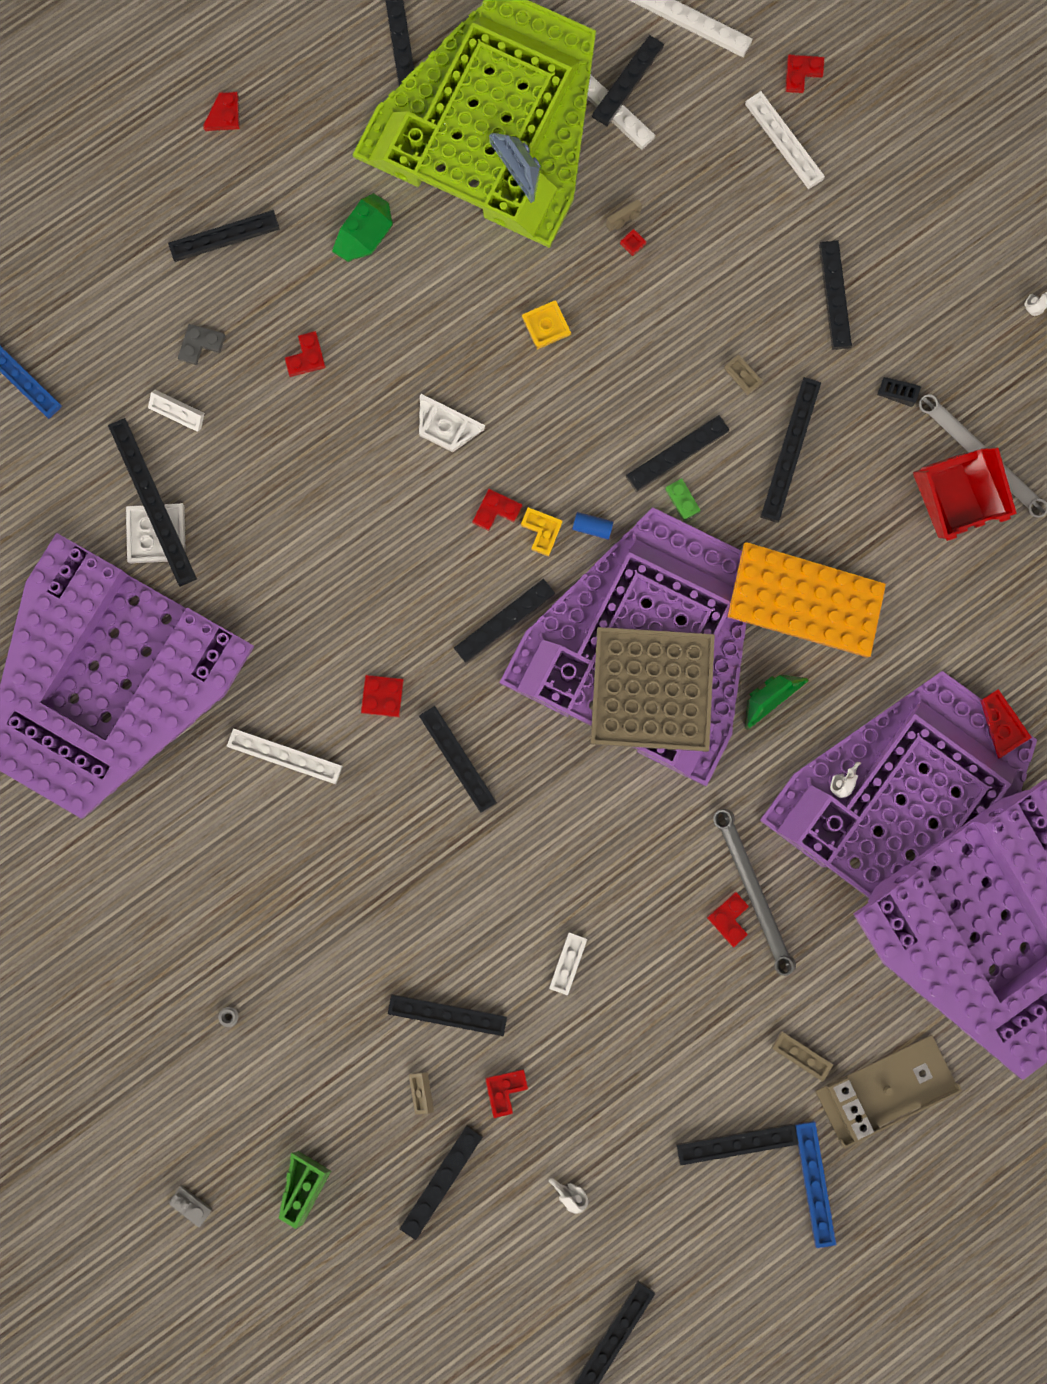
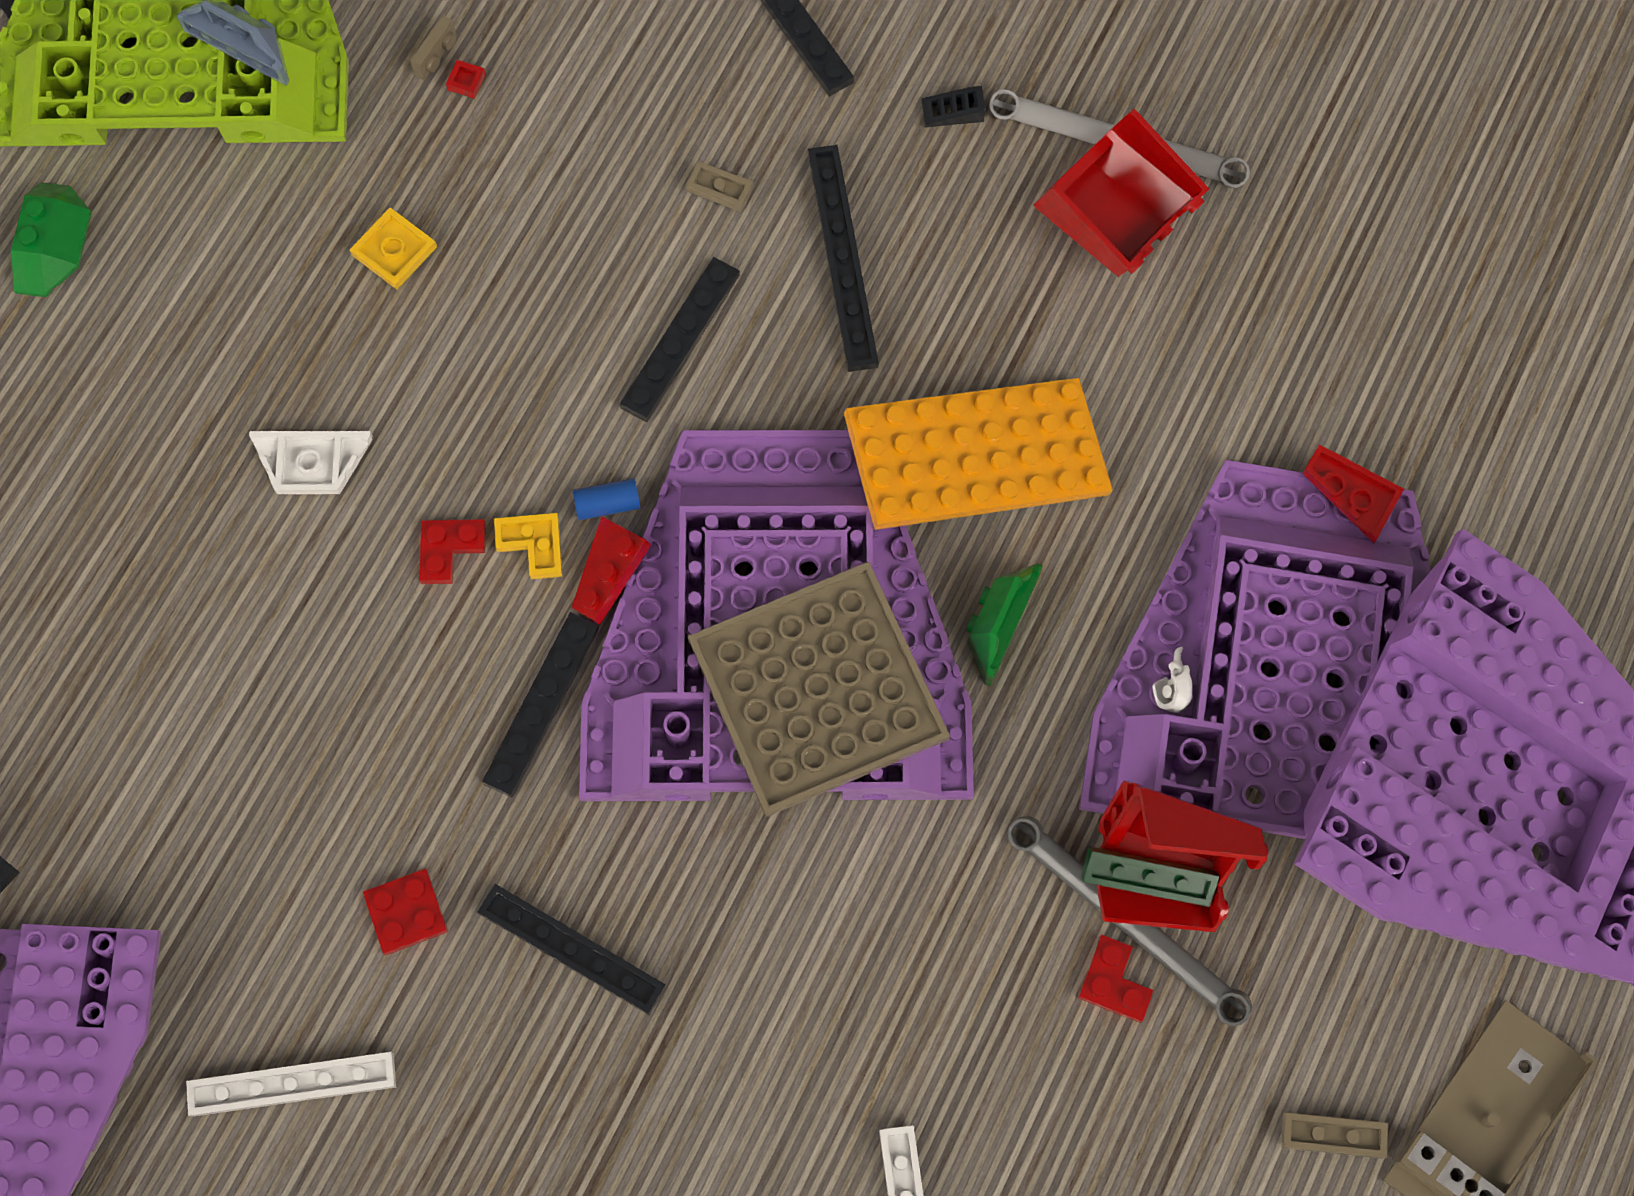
camera: 30 degrees left, 10 degrees down
(310, 358) = (51, 462): red plate -> none
(574, 565) = (608, 569): none -> red wing
(682, 499) = (721, 400): bright green plate -> none
(776, 876) = (1149, 876): none -> dark green plate
(791, 873) = (1178, 832): none -> red windscreen

